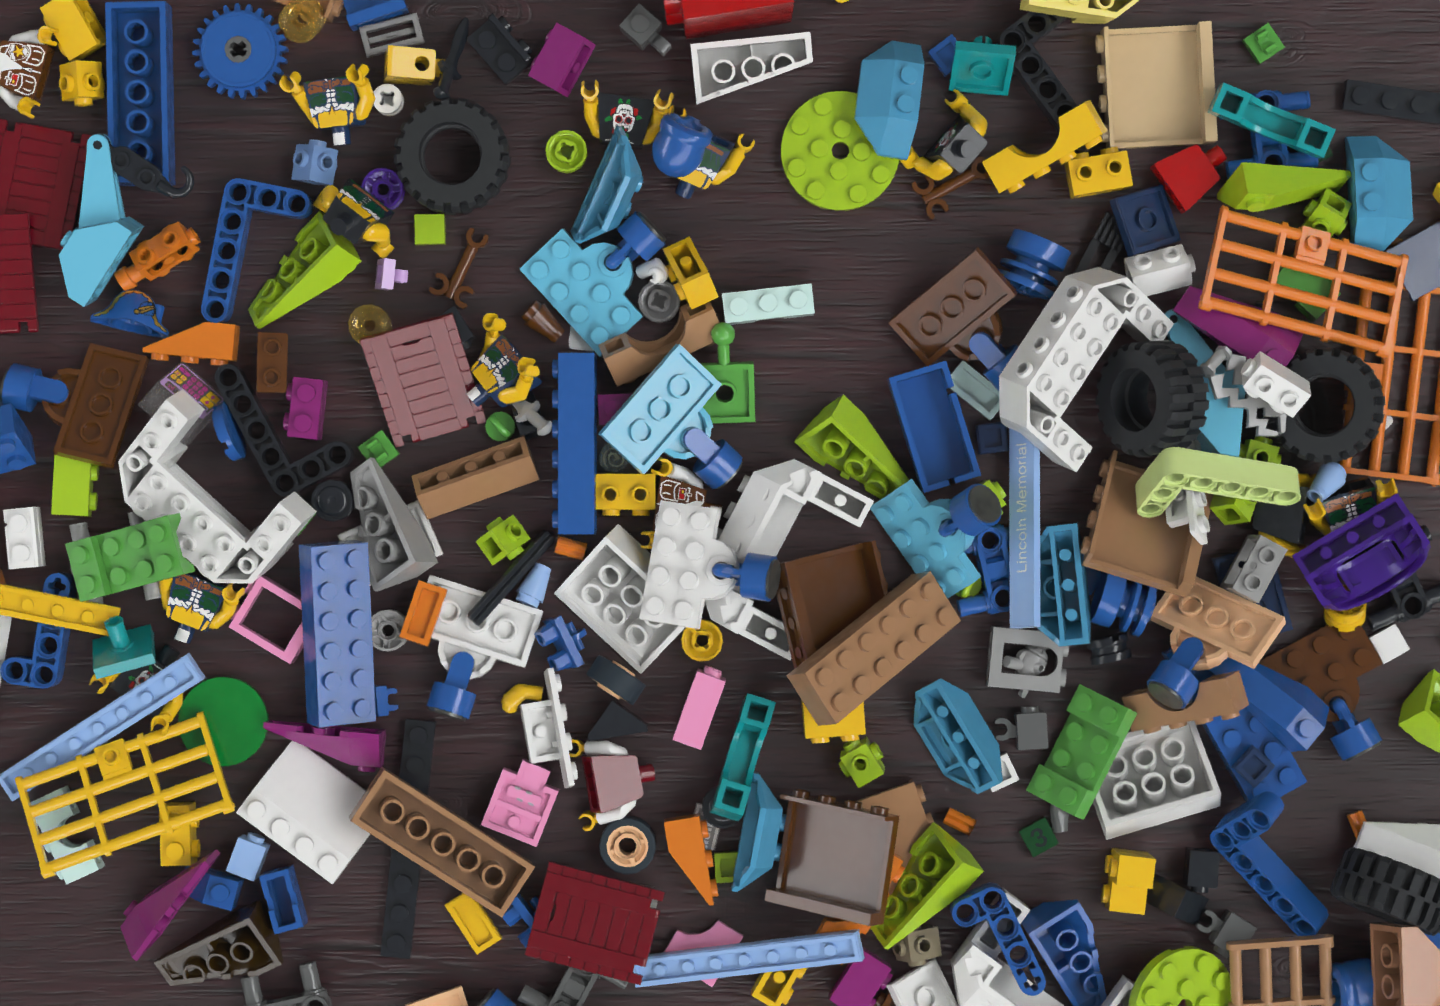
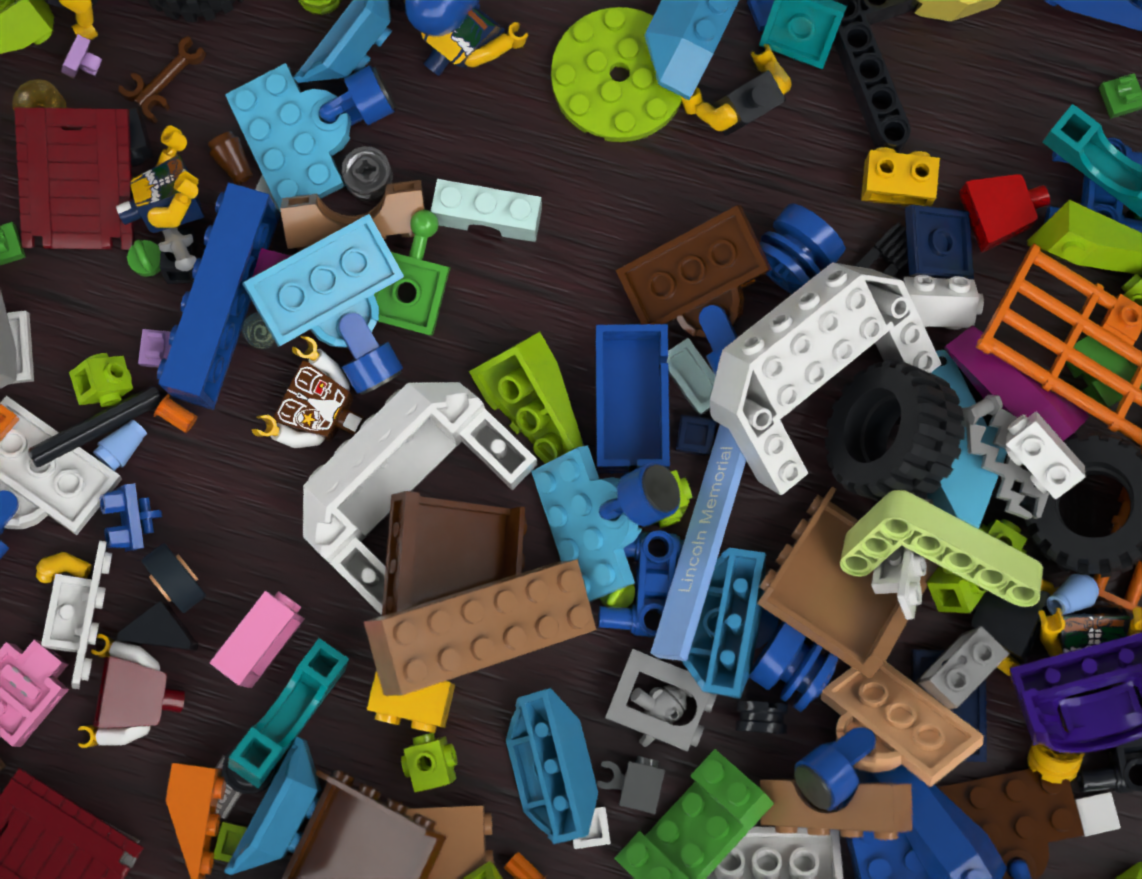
camera: 10 degrees right, 10 degrees down
(430, 229) = (143, 27): lime tile -> none
(475, 477) = (94, 302): medium nougat brick -> none
(537, 498) = (153, 347): none -> lavender tile
(609, 597) = (223, 491): white slope -> none
(623, 861) = (102, 775): wheel -> none
(625, 492) = (257, 370): yellow brick -> none
(653, 268) = (370, 136): white arm -> none
(690, 273) = (407, 148): yellow brick -> none
(694, 567) = (304, 467): white plate -> none
(705, 652) = (304, 570): yellow wheel -> none
(931, 196) = (708, 152): reddish brown bar -> none
(1077, 128) = (891, 114): yellow arch -> none
(1157, 86) = (992, 105): tan panel -> none

